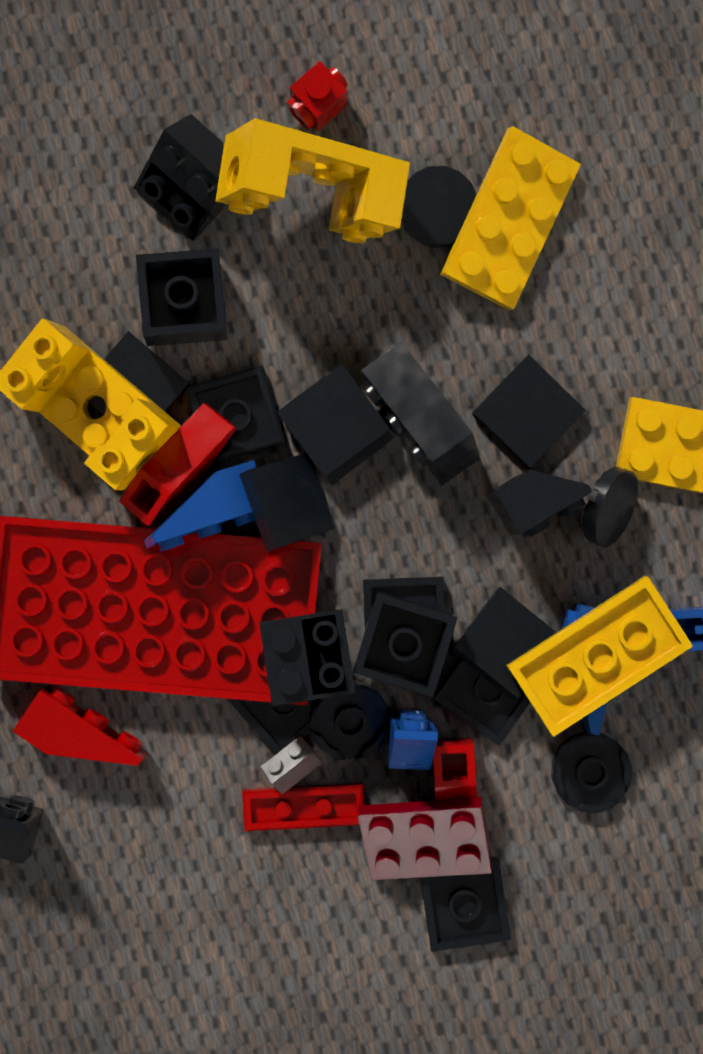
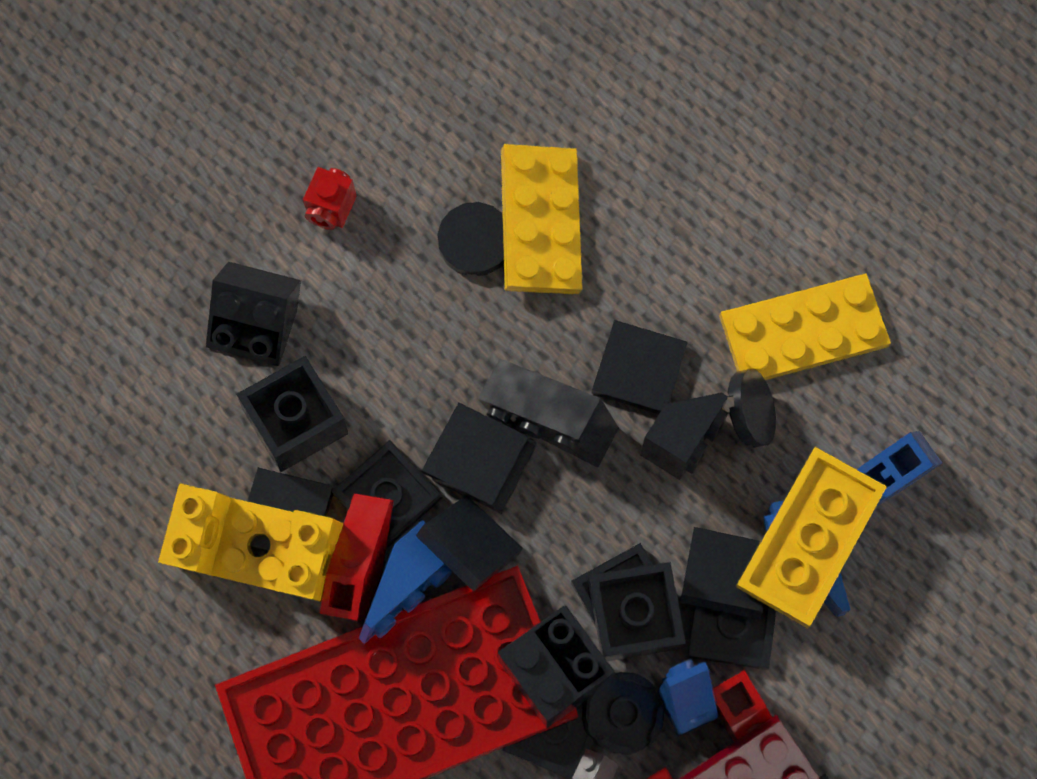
camera: 20 degrees left, 15 degrees down
(366, 183) = (311, 257): yellow plate -> none
(578, 768) = (854, 662): black tile -> none

